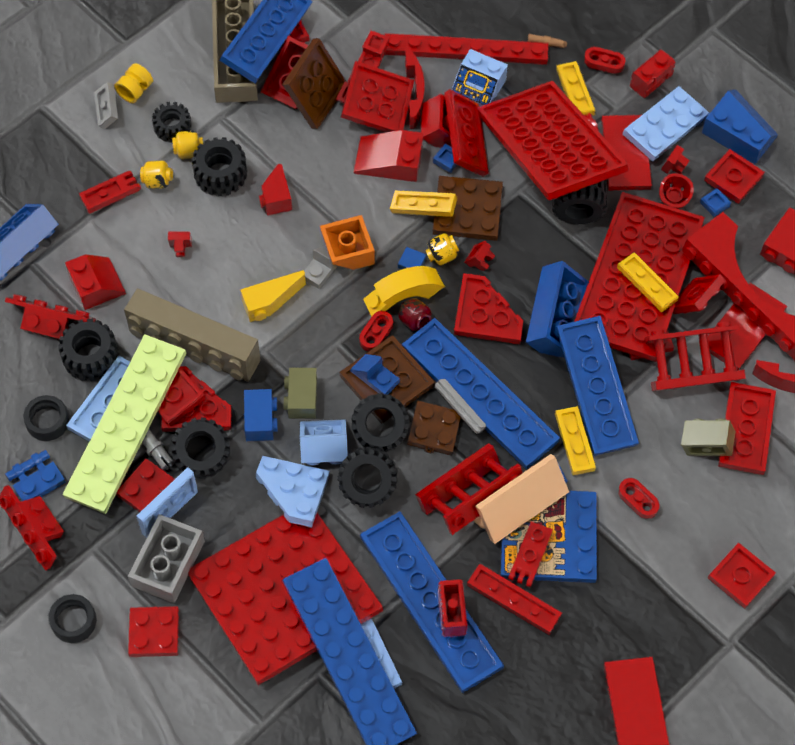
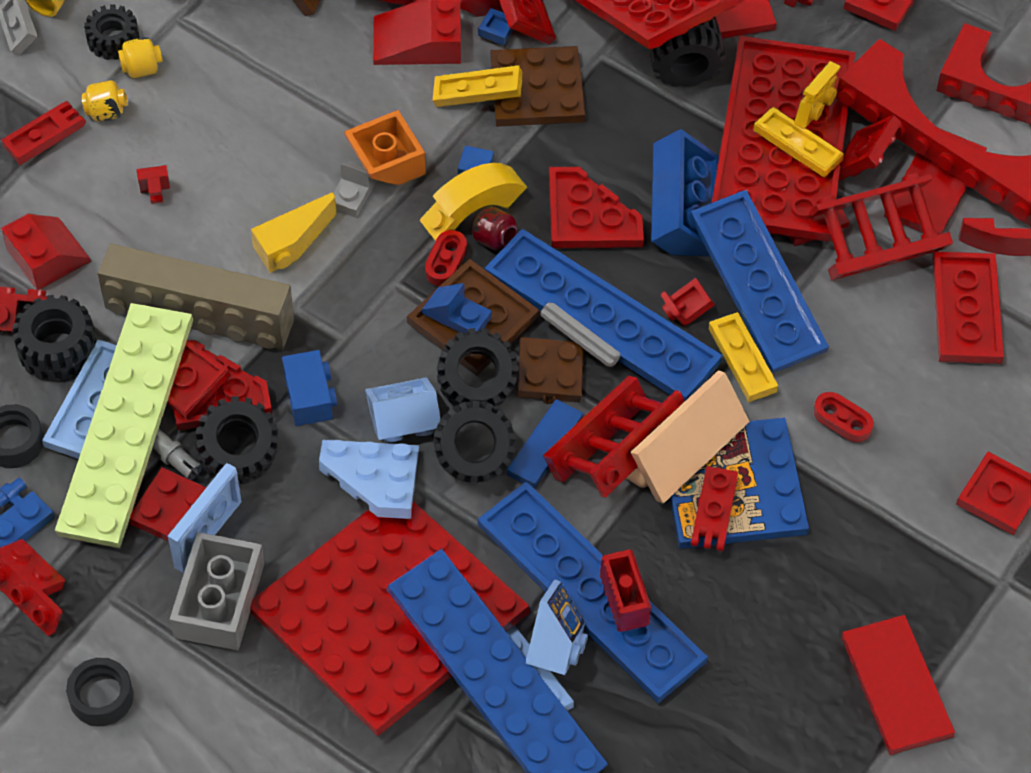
camera: 10 degrees left, 5 degrees down
(153, 631) = (216, 692): red plate -> none
(218, 152) = (184, 61): black tyre -> none
(275, 193) = (274, 102): red slope -> none
(301, 393) = (361, 351): olive brick -> none
(398, 631) = (557, 632): none -> light blue slope
(432, 468) = (529, 463): none -> blue tile
(442, 249) = (514, 141): yellow head -> none
(477, 256) = (564, 142): red tile -> none
(514, 599) = (704, 570): red plate -> none
(542, 393) = (687, 302): none -> red bracket
(667, 249) = (818, 94): none -> yellow plate
(673, 195) = (808, 31): red helmet -> none
(708, 437) = (920, 324): brick -> none
(715, 202) = (864, 33): blue tile -> none

